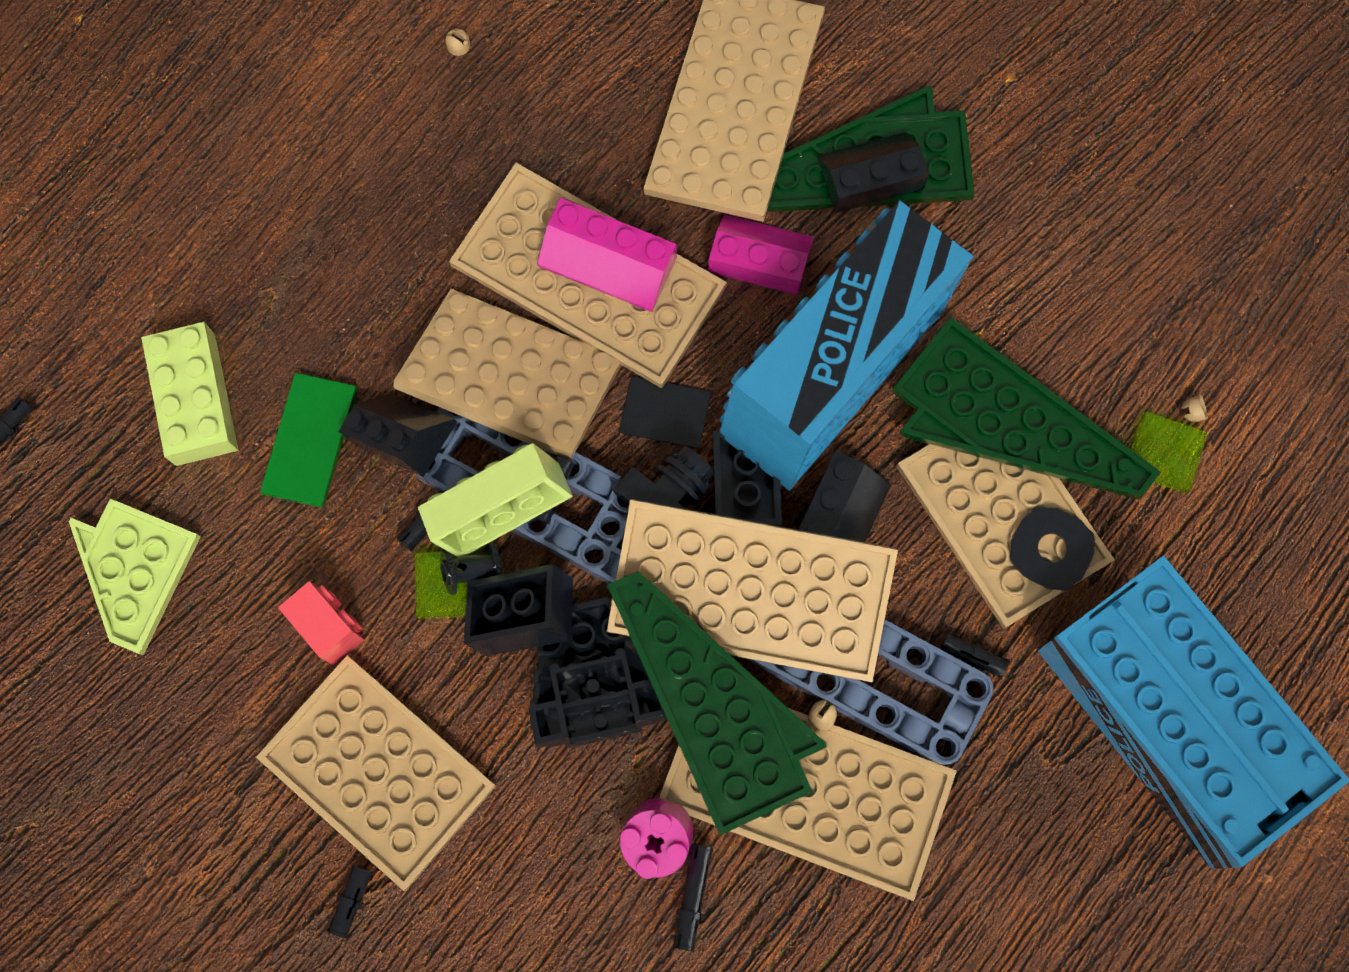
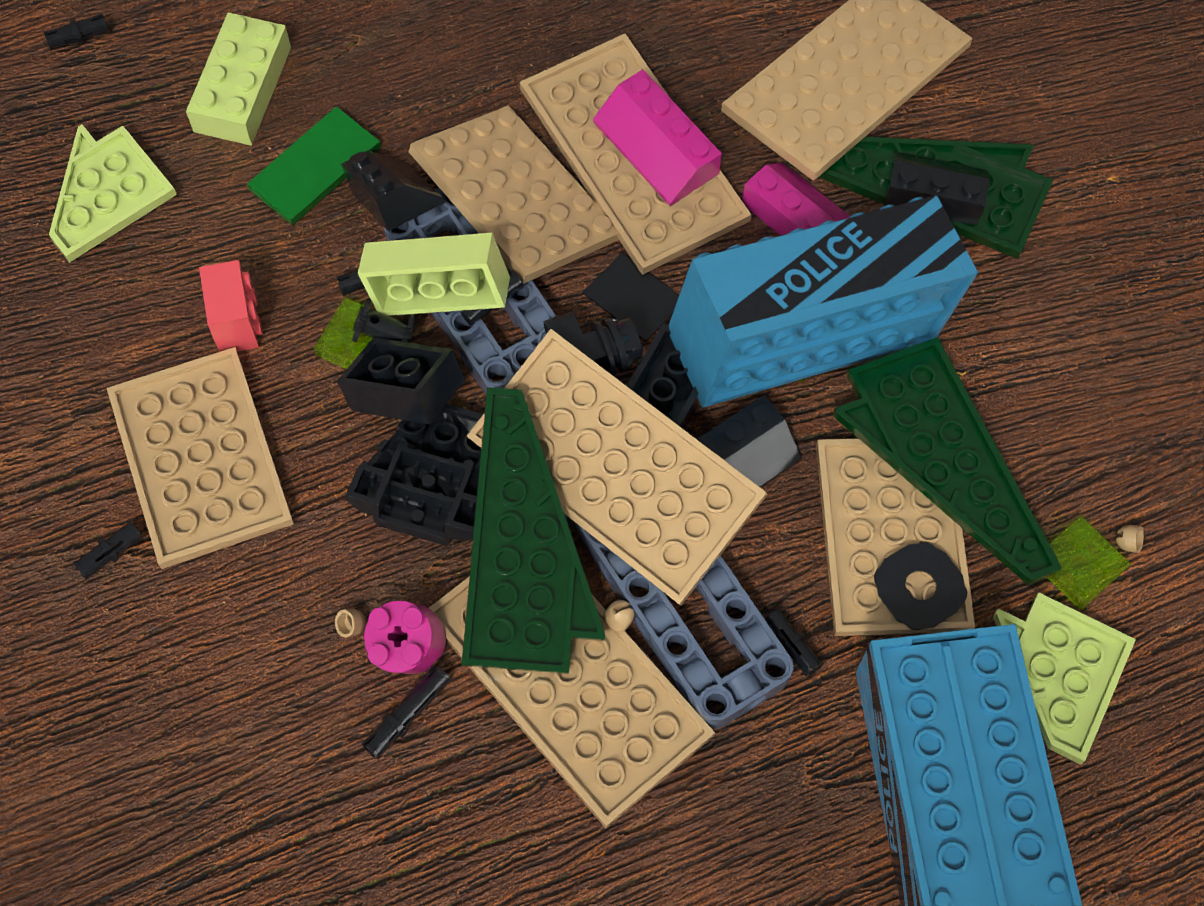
camera: 25 degrees right, 10 degrees down
(599, 847) = (349, 622): none -> tan hinge
(1209, 550) = (1070, 670): none -> yellowish green wing

